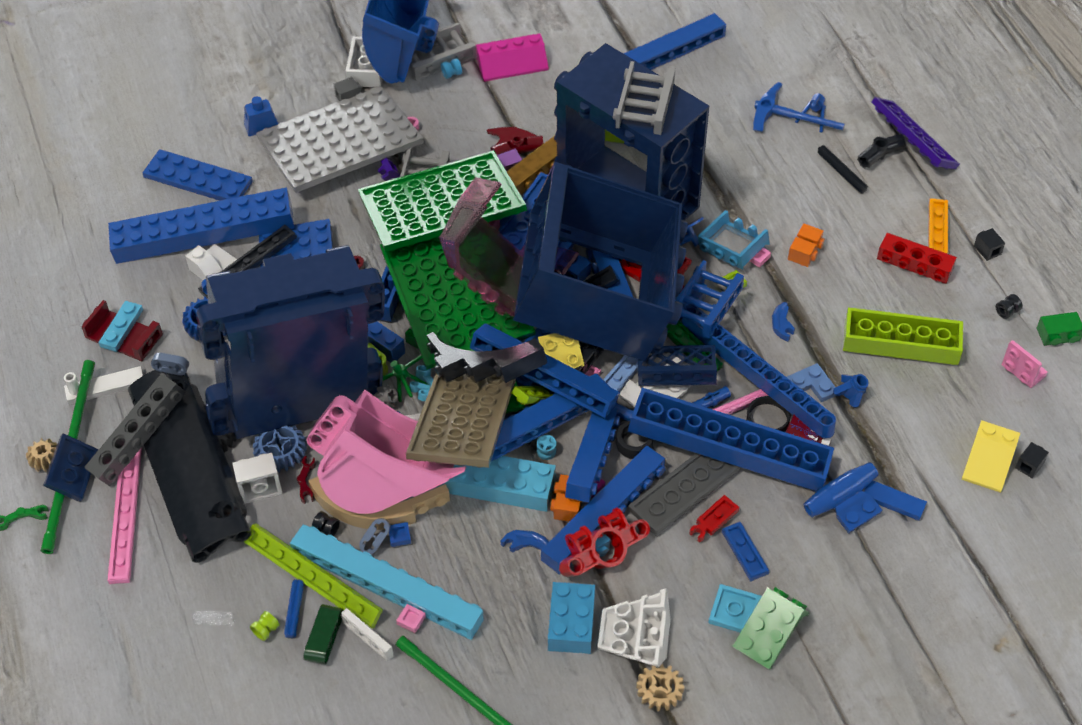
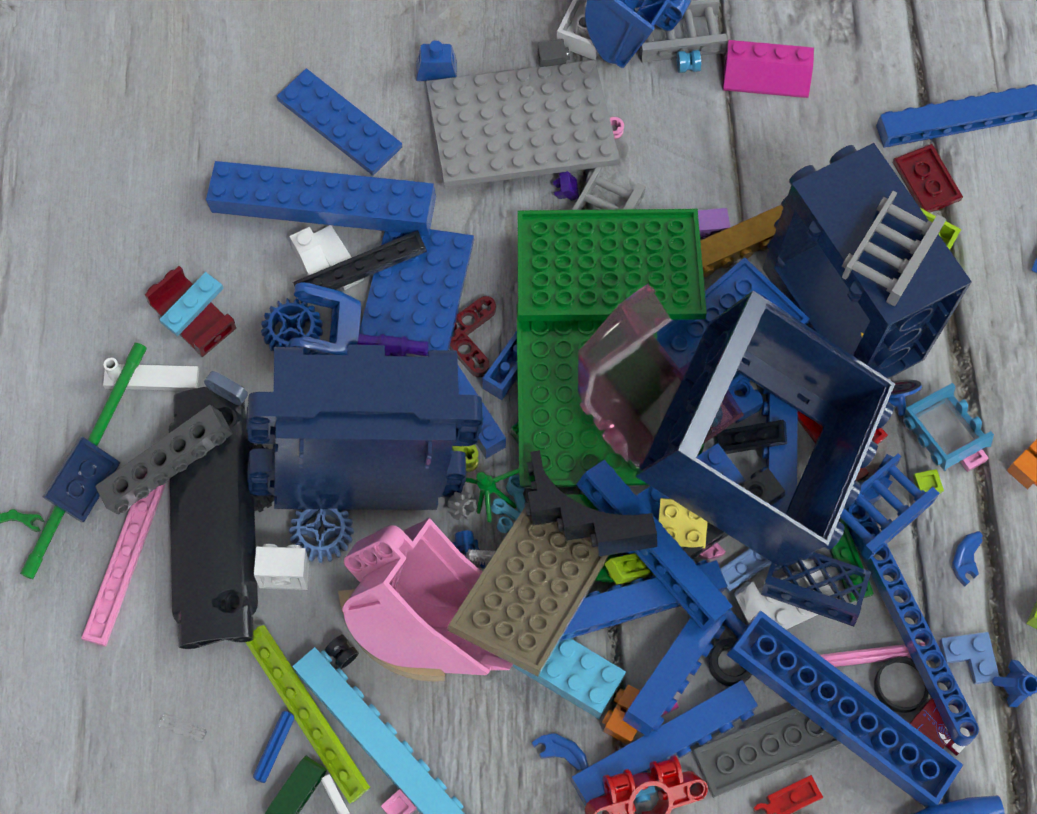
camera: 15 degrees right, 15 degrees up
(41, 454) = (47, 449): tan gear -> none
(264, 625) = (234, 759): lime wheel -> none
(301, 479) = (333, 581): dark red piece -> none
(370, 533) = (393, 692): sand blue beam -> none
(399, 534) = (420, 693): blue plate -> none
(515, 138) = (730, 192): dark red pin -> none
(543, 443) = (628, 631): medium azure wheel -> none
(711, 399) = (842, 638): blue pin -> none

